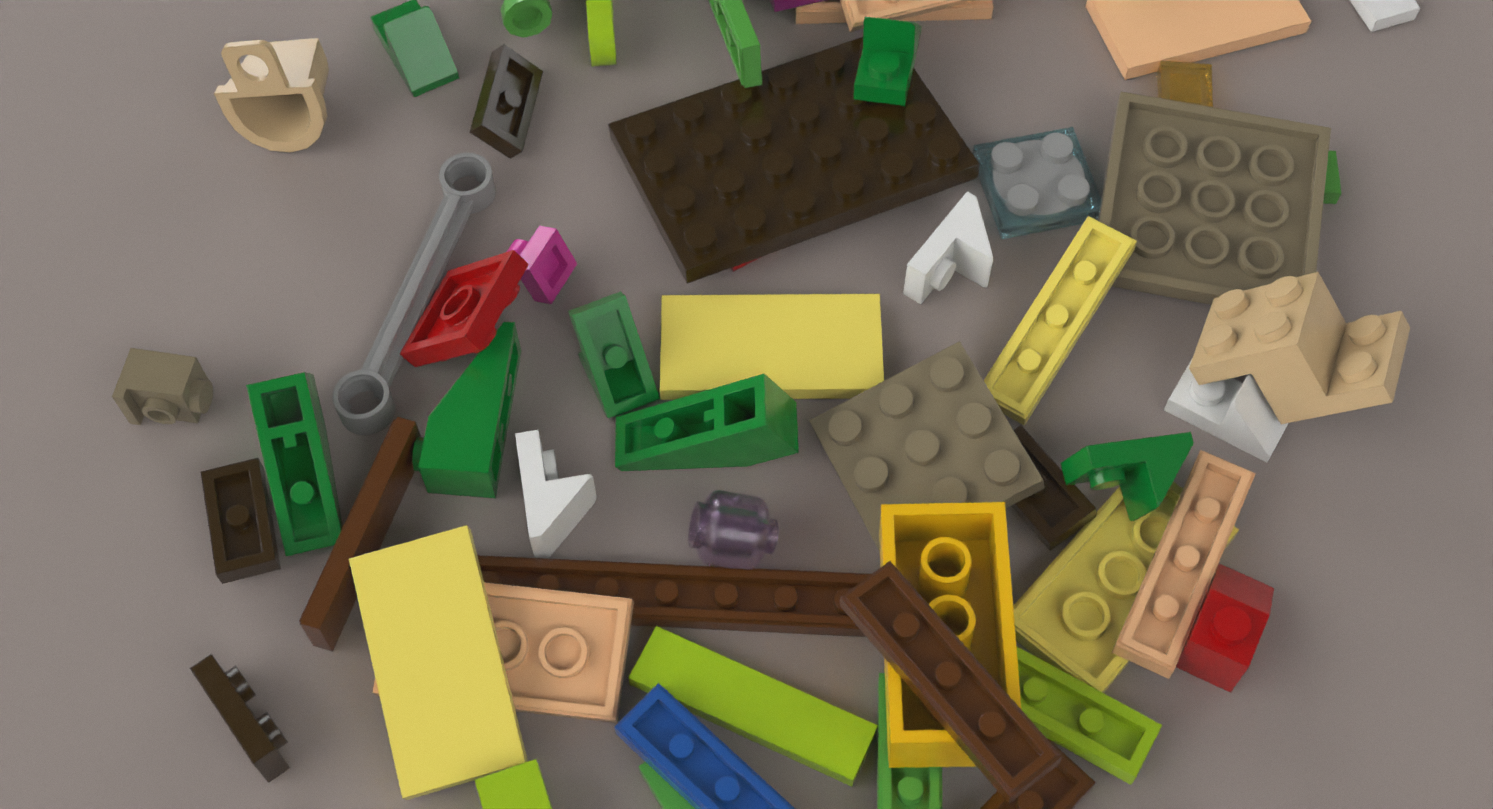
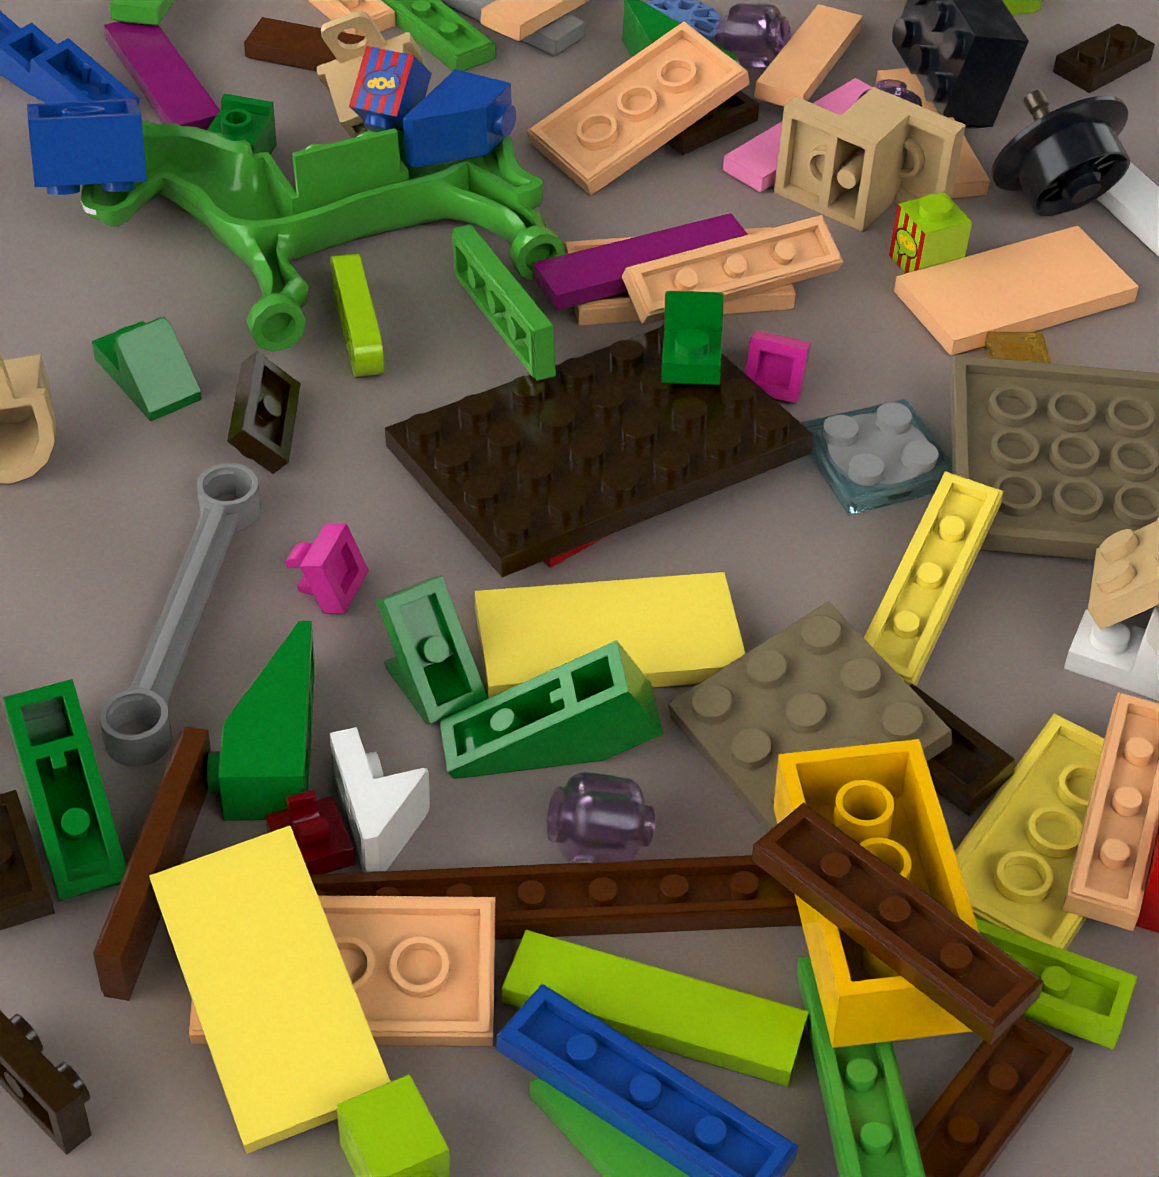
camera: 10 degrees left, 15 degrees down
(465, 309) = (249, 615): red plate -> none
(494, 519) = (317, 832): none -> dark red tile
(955, 245) = (801, 519): white slope -> none
(962, 85) = (778, 364): none -> dark pink tile
(1140, 467) = (1051, 705): green slope -> none

